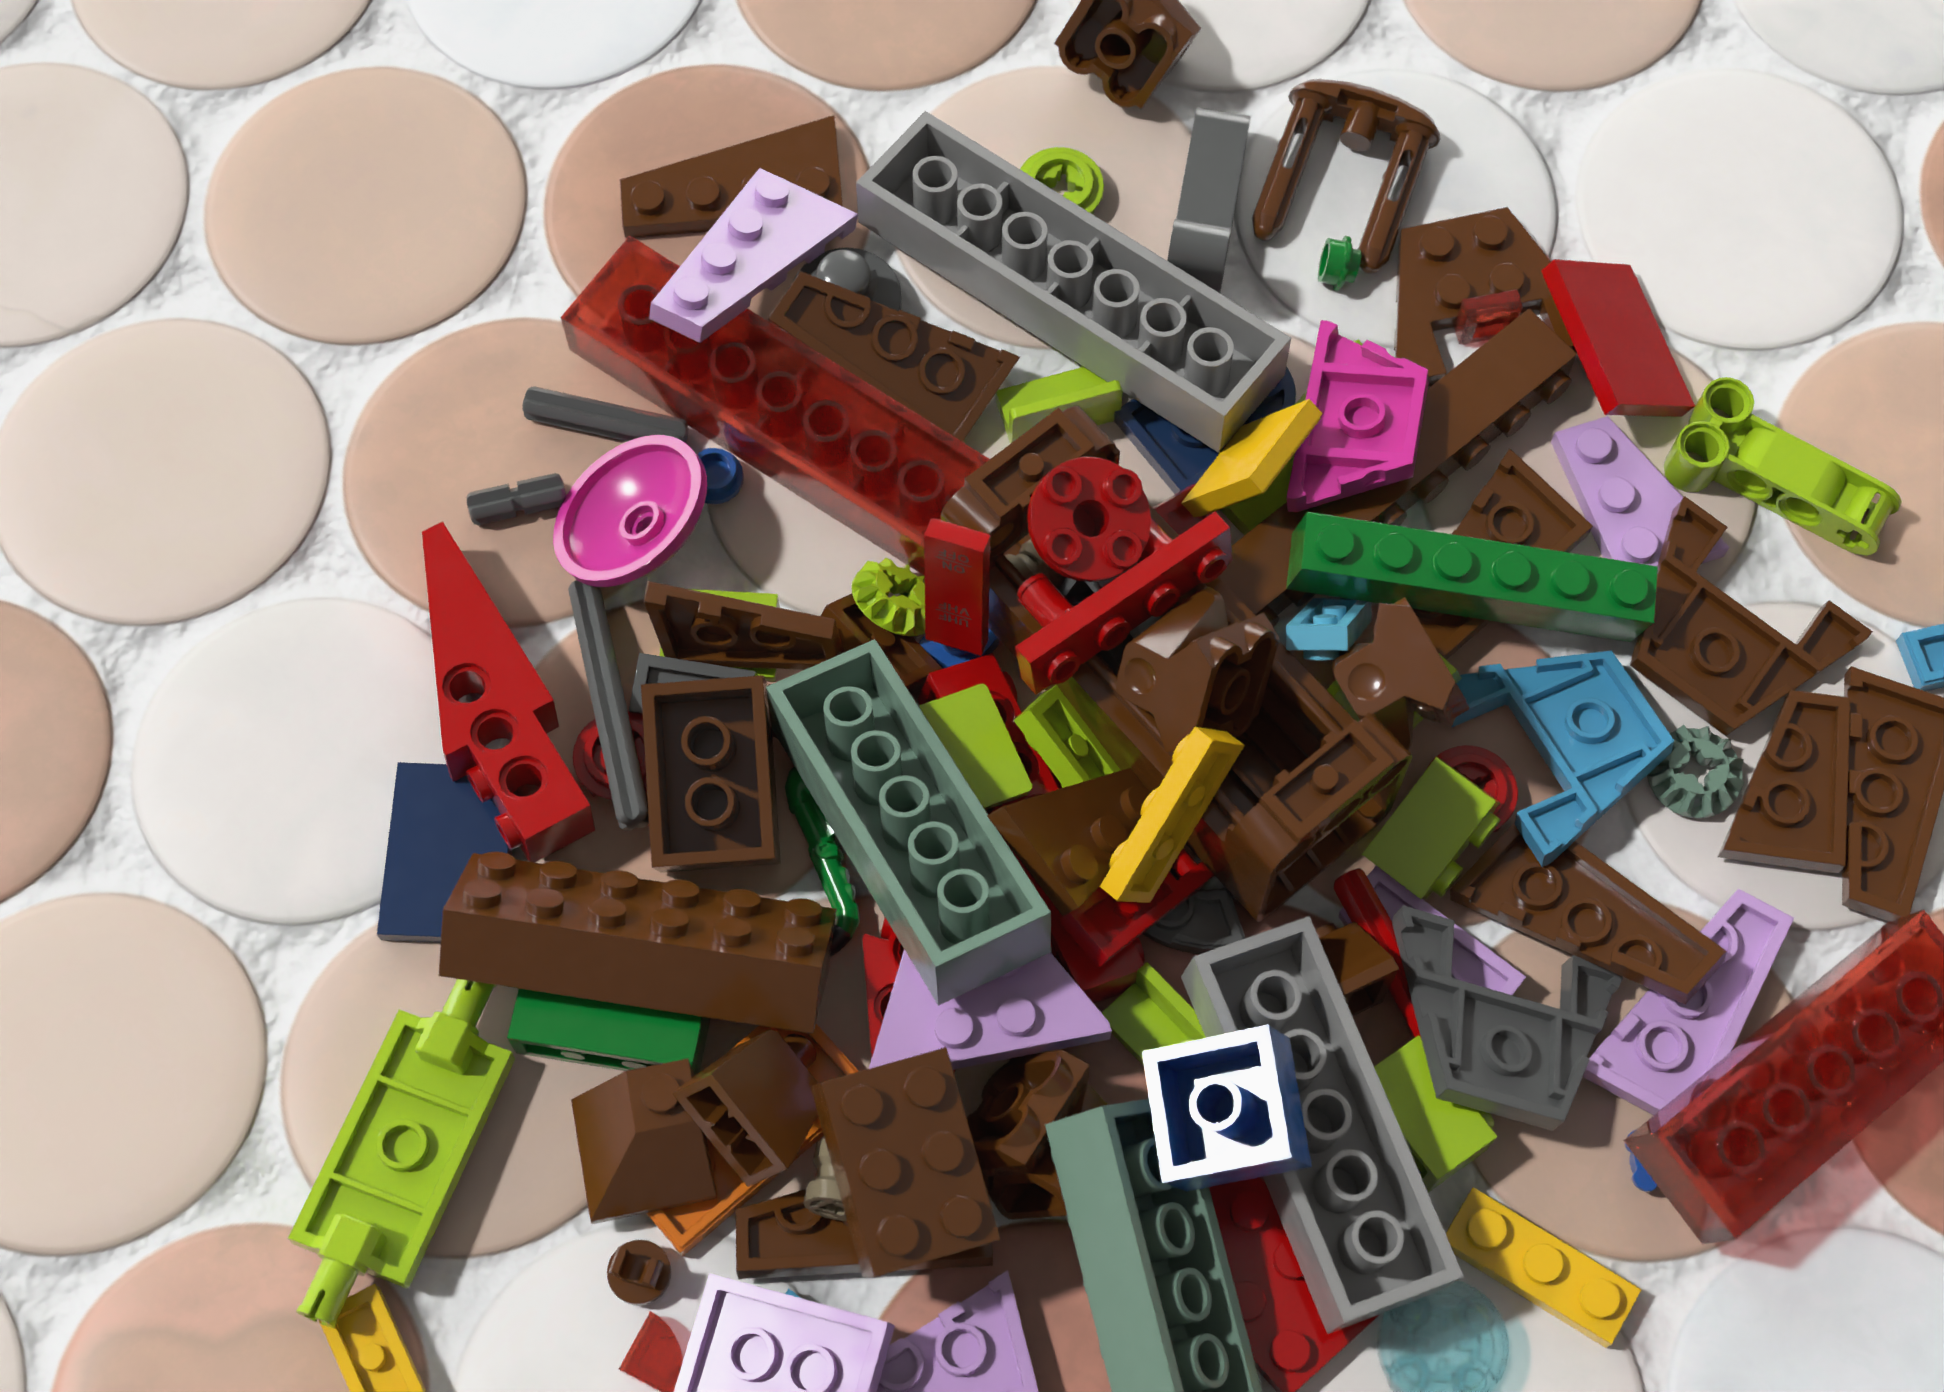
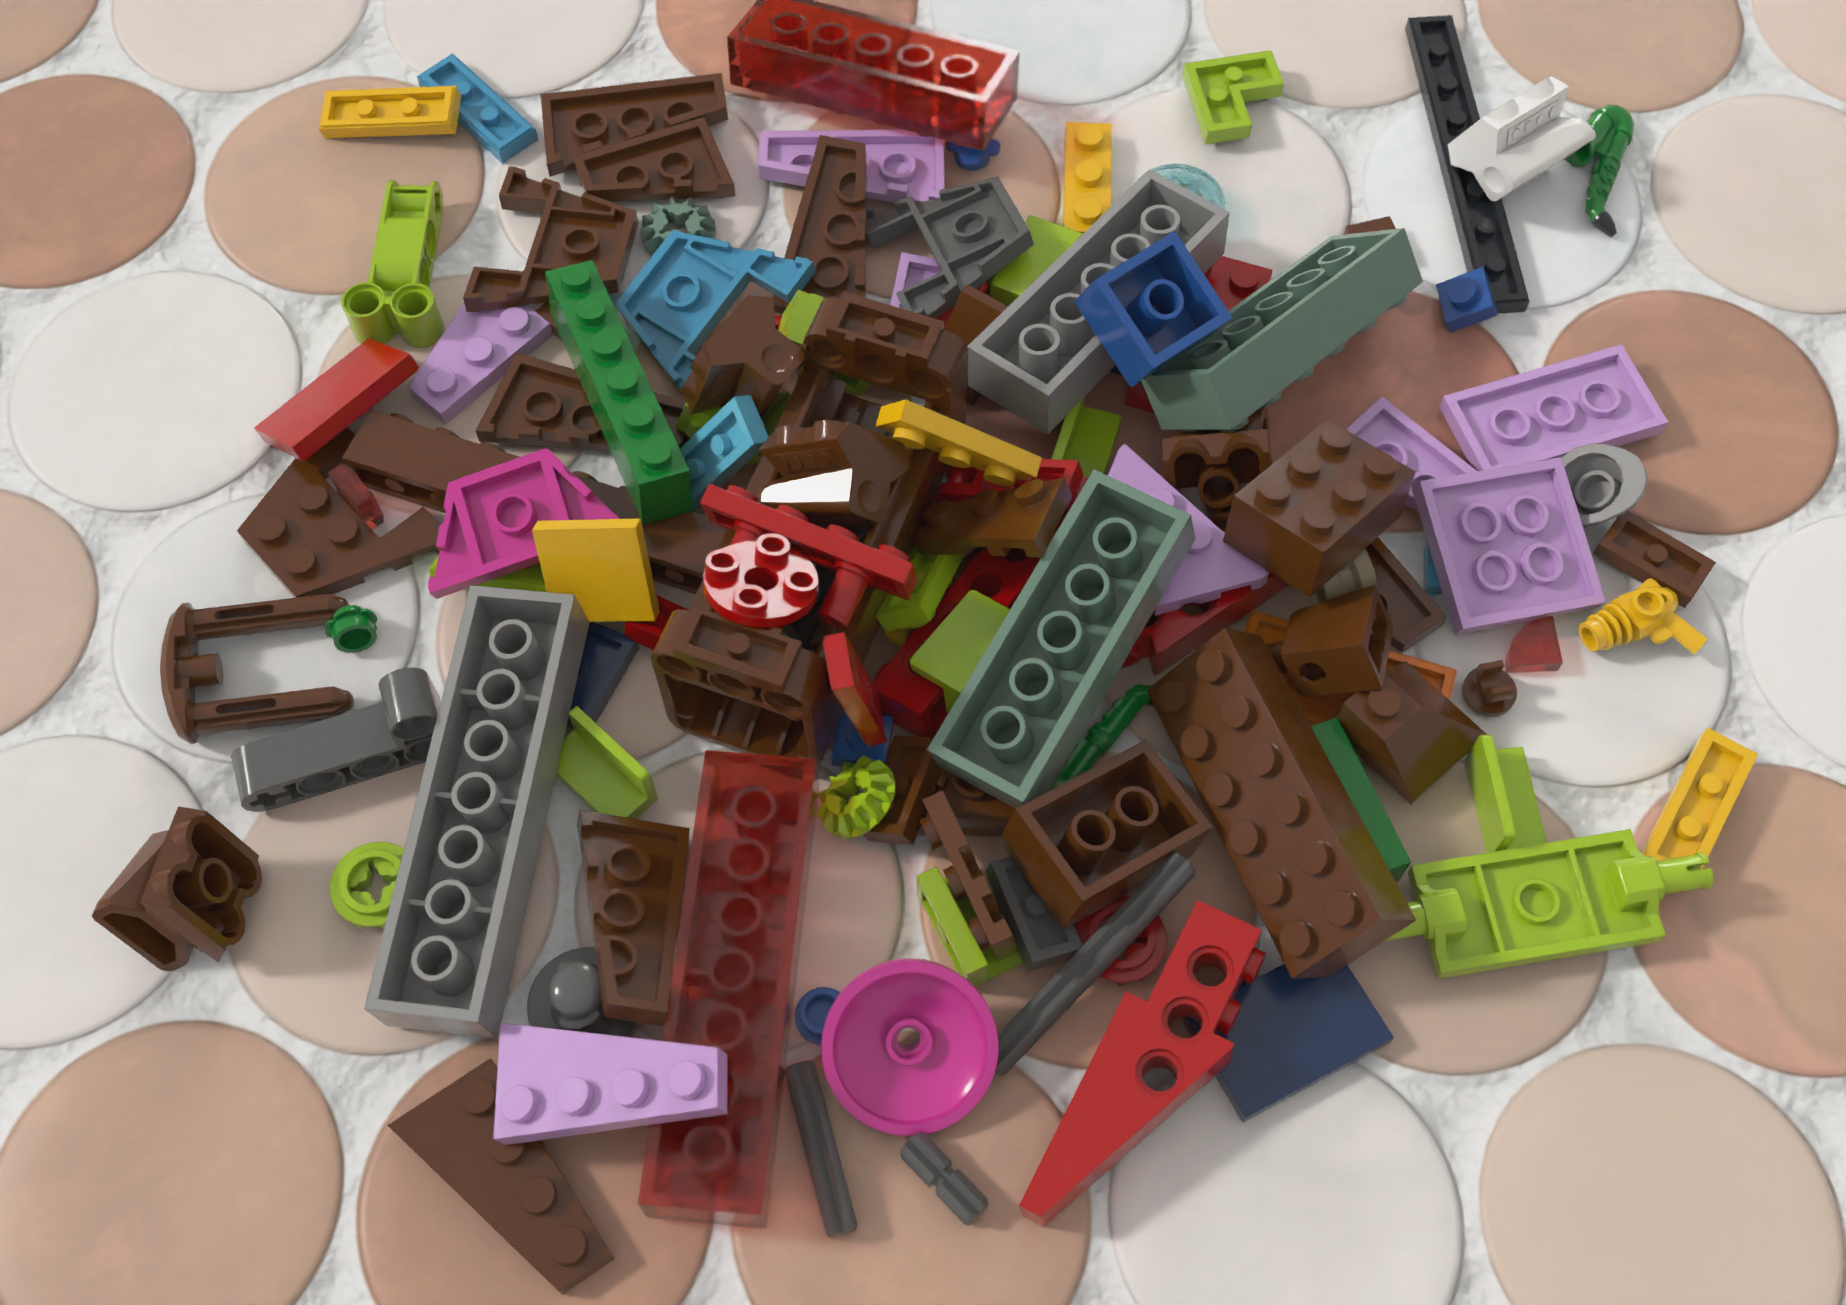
camera: 120 degrees left, 5 degrees down
(519, 1201) = (1503, 796): none -> lime panel

